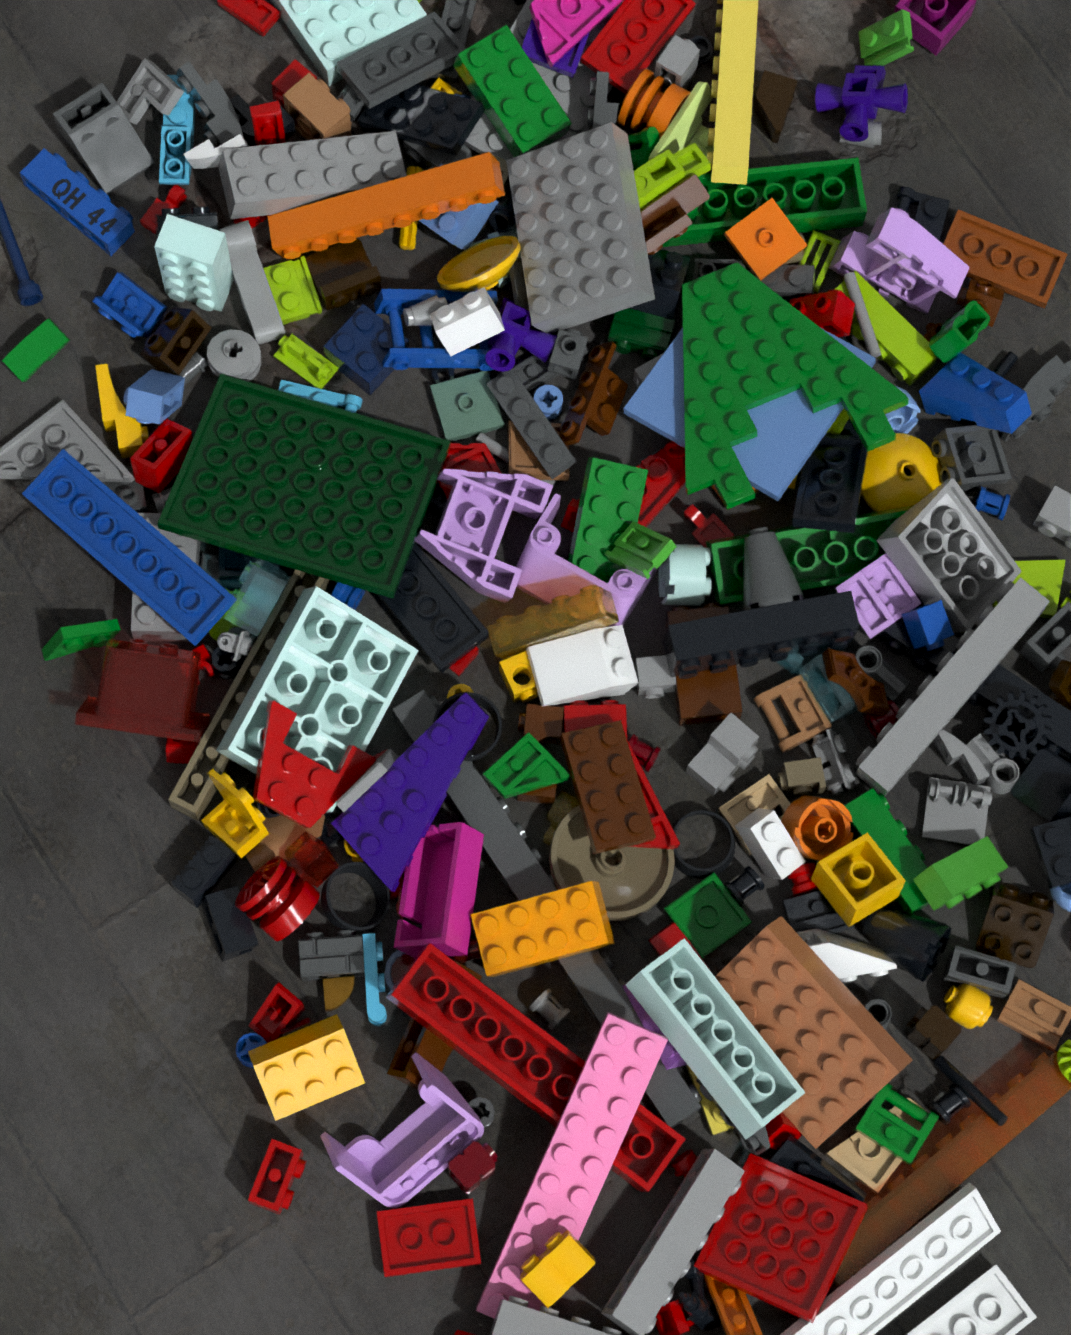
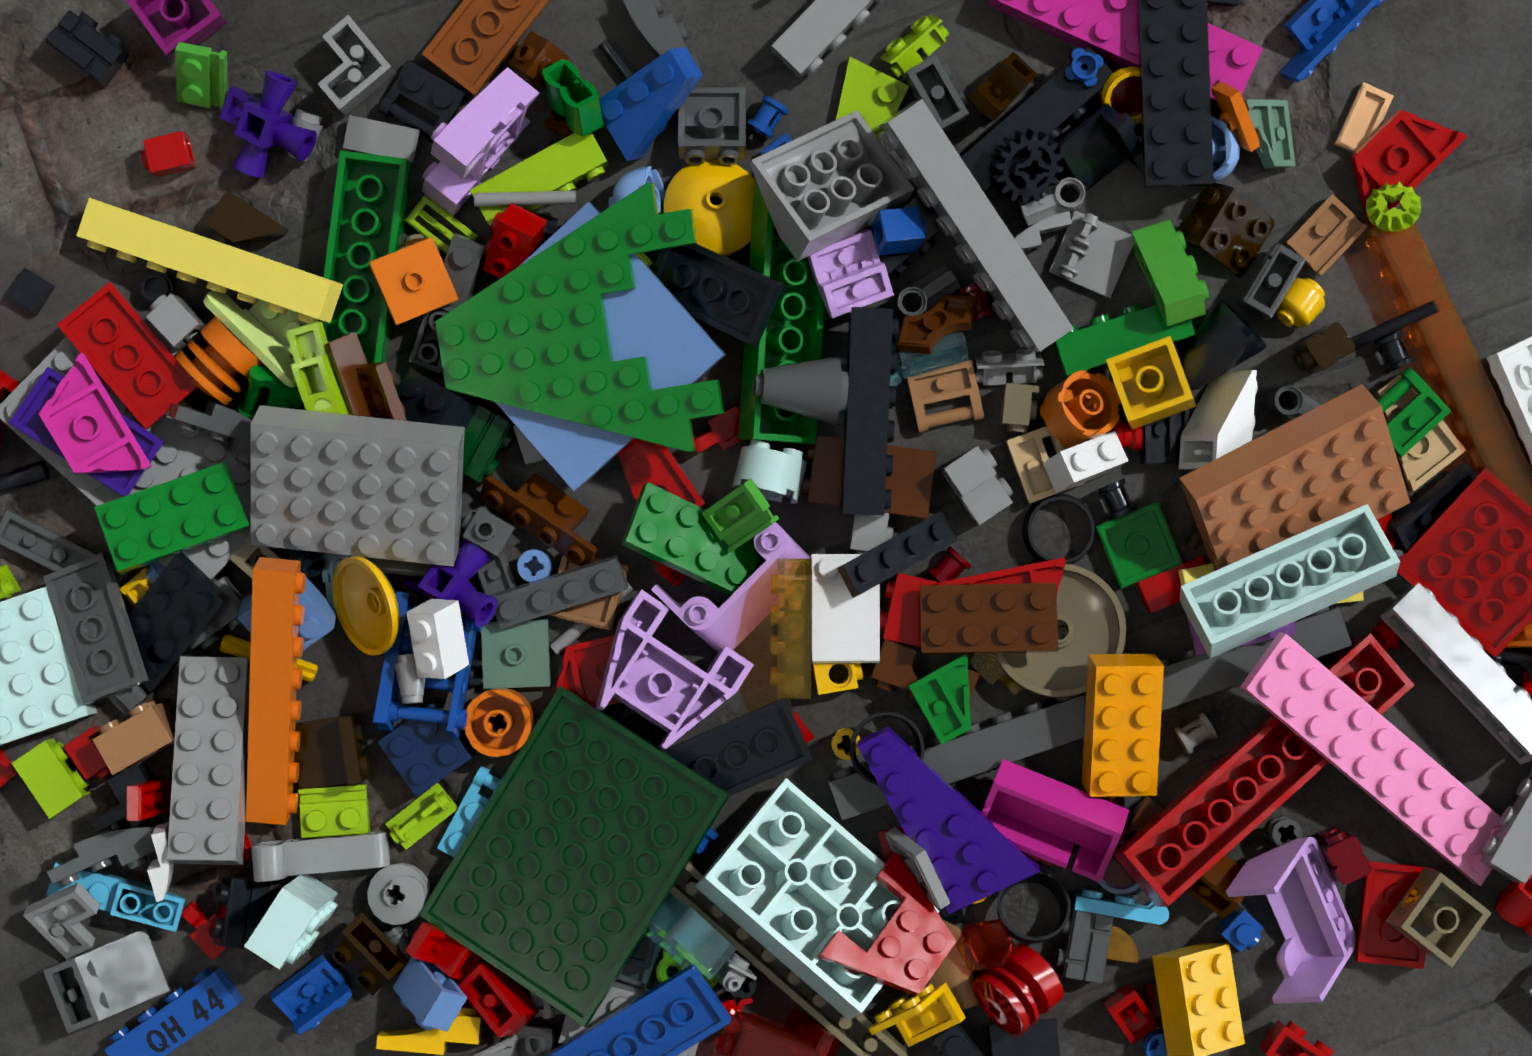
camera: 70 degrees left, 15 degrees up
(194, 398) = (443, 951): none -> red brick
(265, 58) = (52, 777): none -> lime brick
(379, 1095) = (1240, 929): none -> blue brick
(405, 385) = (517, 715): none -> orange brick
(438, 1269) = (1438, 917): none -> dark tan brick
(556, 1267) = (1471, 799): yellow brick -> none
(642, 697) = (897, 554): none -> black plate
(813, 33) = (168, 154): none -> red brick
(877, 191) = (380, 138): none -> light grey slope
(930, 163) = (361, 70): none -> light grey brick

